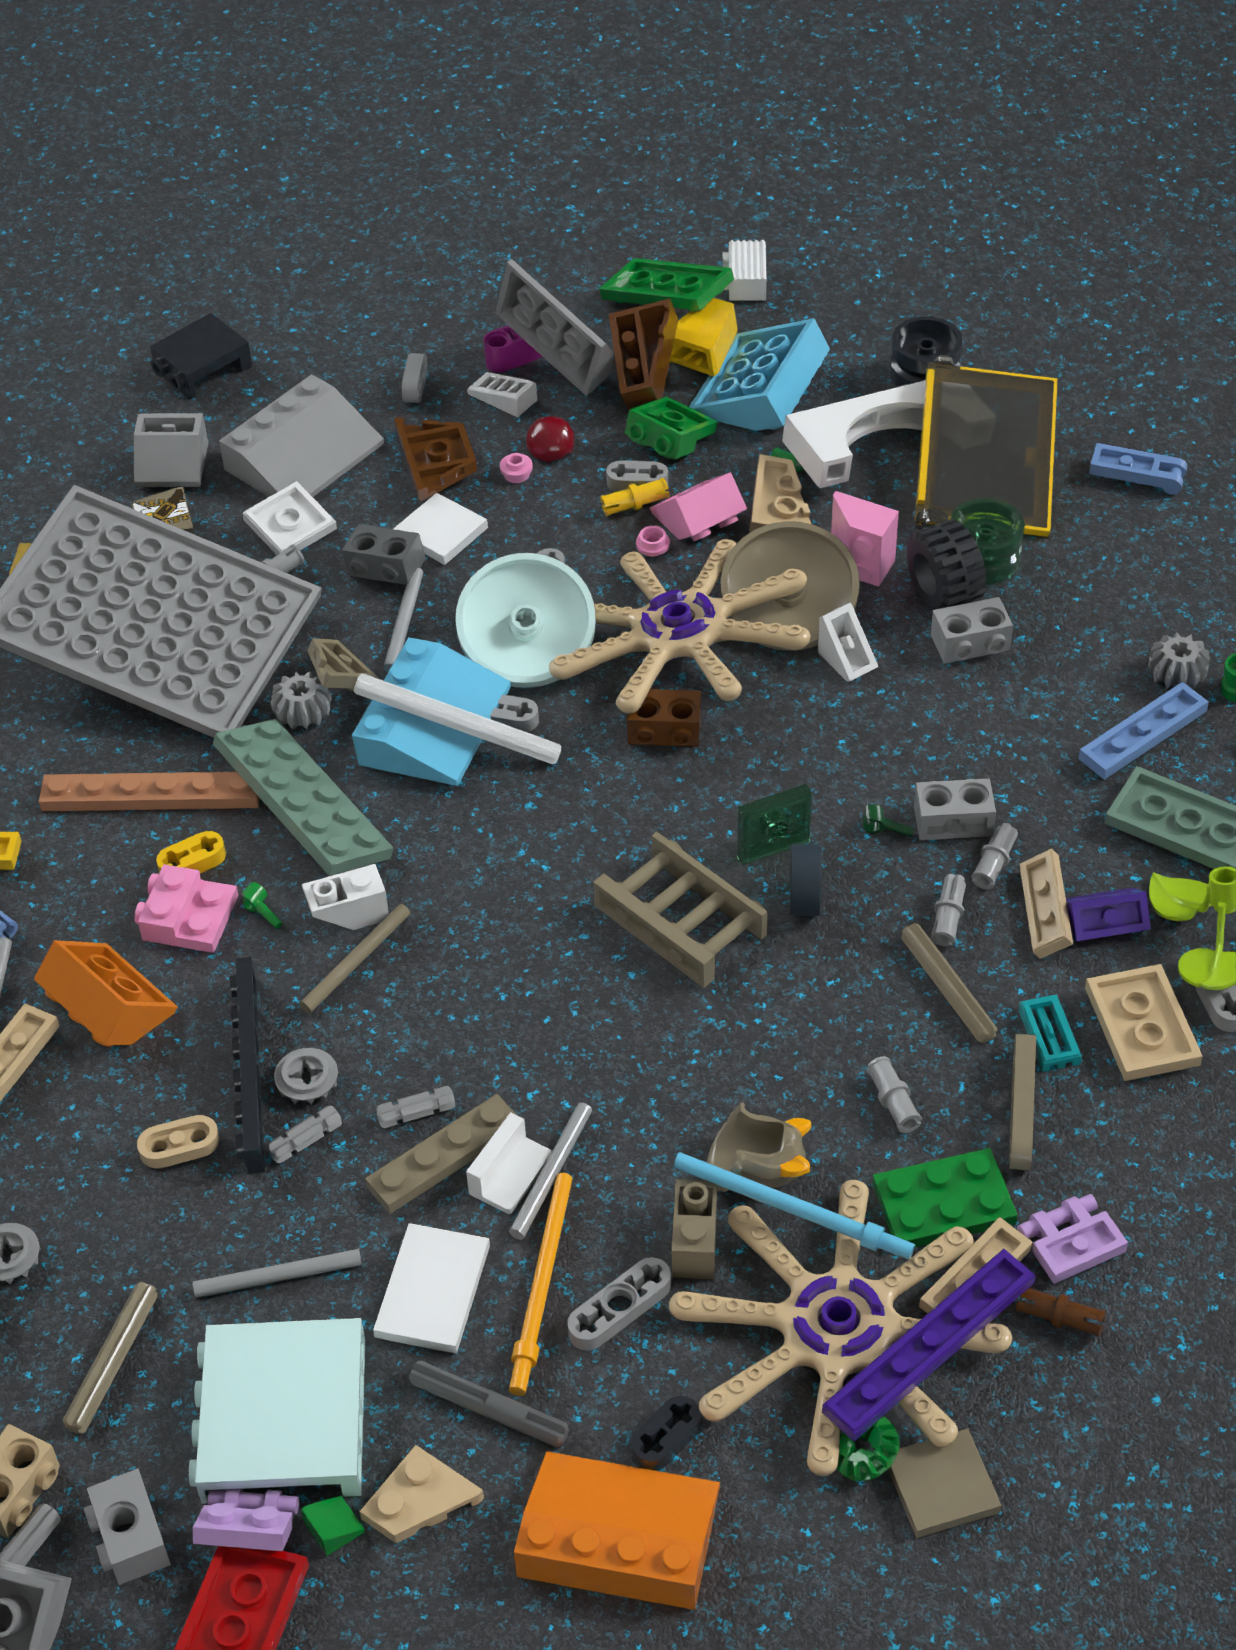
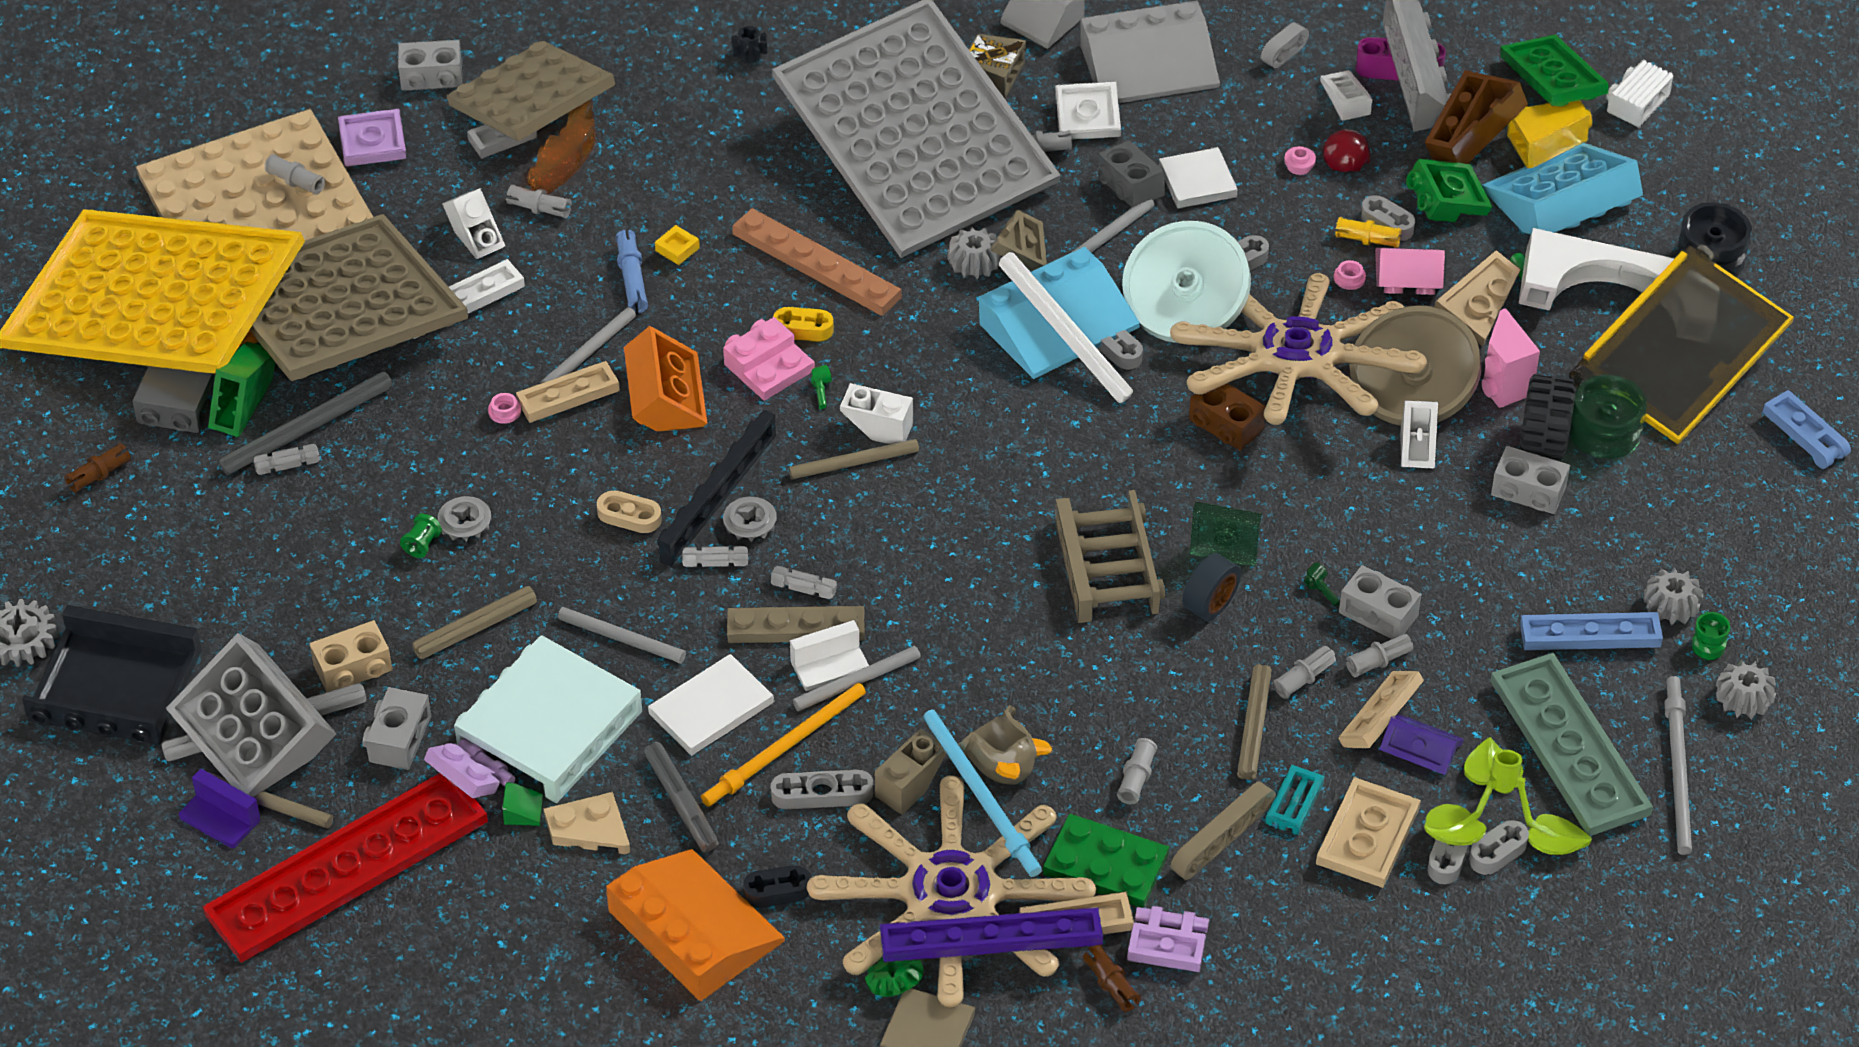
camera: 35 degrees right, 0 degrees up
(303, 797) = (913, 323): sand green plate -> none
(435, 454) = (1244, 116): reddish brown wing -> none

